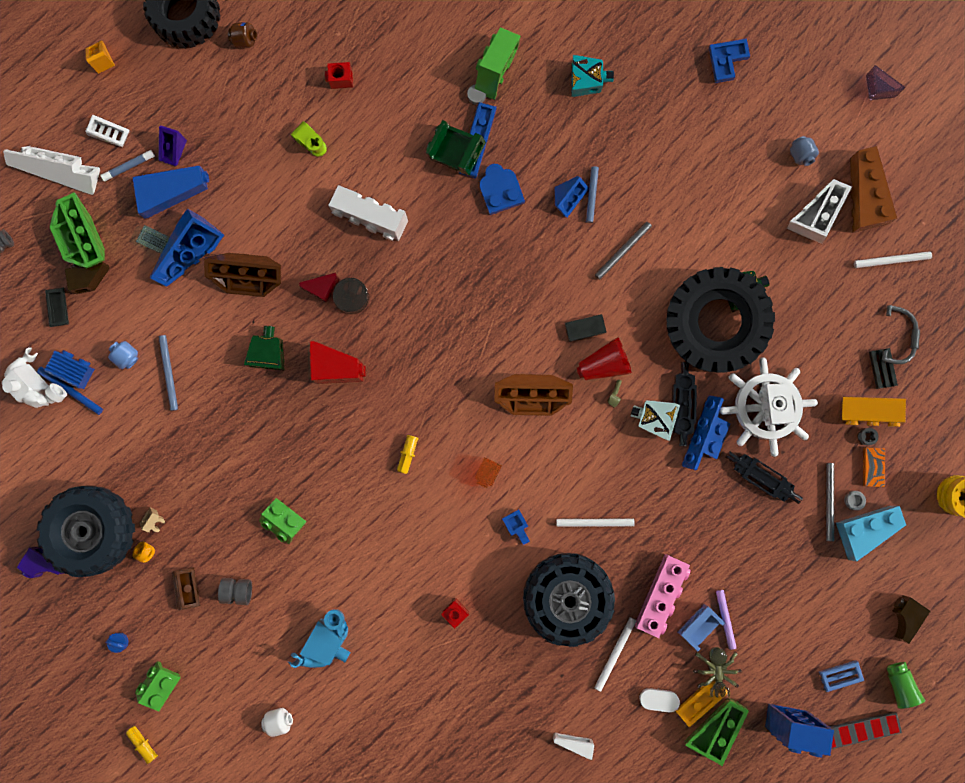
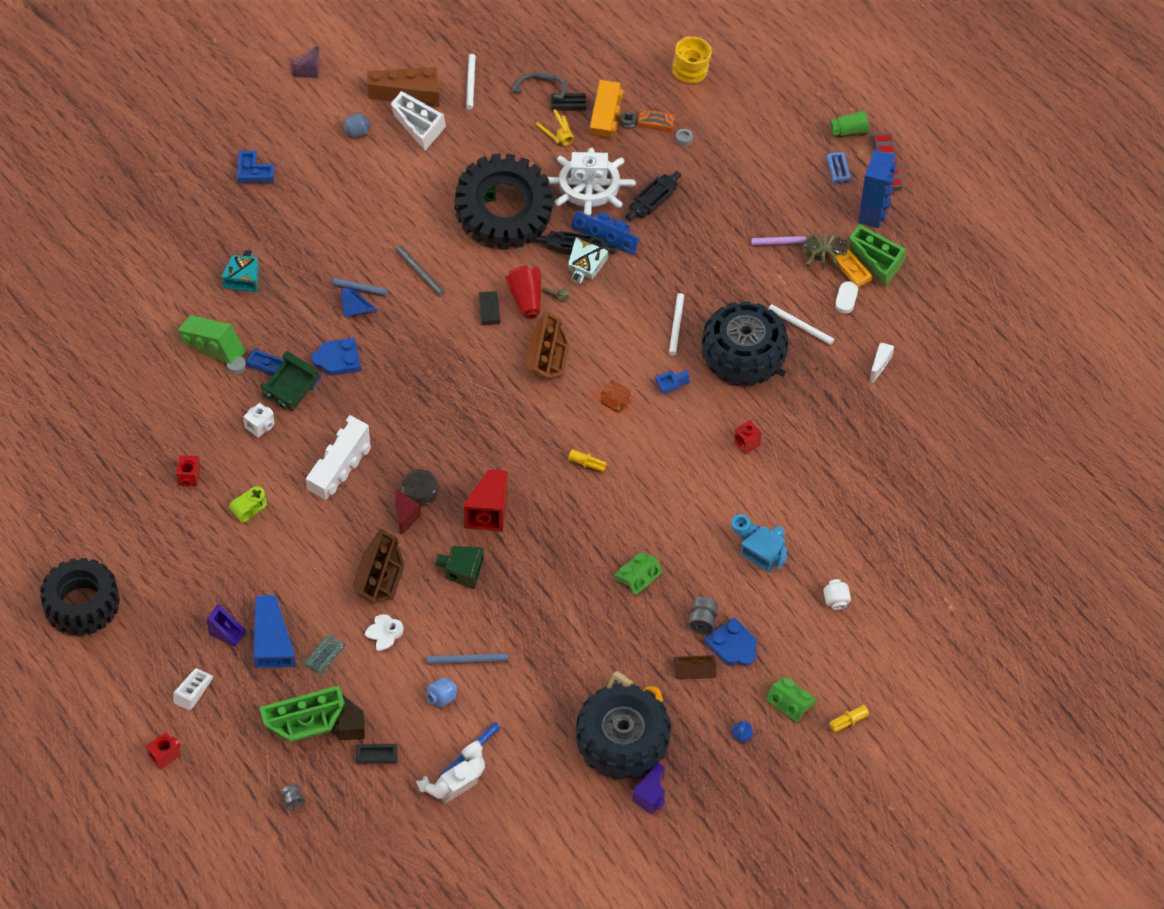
camera: 90 degrees left, 30 degrees down
(31, 114) = (163, 758): none -> red brick
(55, 167) = (221, 739): white wedge -> none
(69, 369) = (447, 744): blue brick -> none
(99, 57) = (105, 685): light orange slope -> none
(127, 165) = (235, 674): sand blue bar -> none
(187, 244) = (328, 616): blue wedge -> none
(187, 288) = (382, 631): none -> white plate
(213, 623) = (733, 644): none -> blue plate
(242, 35) = (121, 549): reddish brown head -> none
(406, 128) = (259, 420): none -> white brick
(662, 595) = (750, 280): bright pink brick -> none
(700, 626) = (781, 258): medium blue panel -> none
(829, 501) = (682, 154): flat silver bar -> none
(832, 371) = (564, 134): none -> yellow plant
(869, 530) = (712, 129): medium azure wedge -> none
(910, 617) = (790, 112): dark brown arch -> none

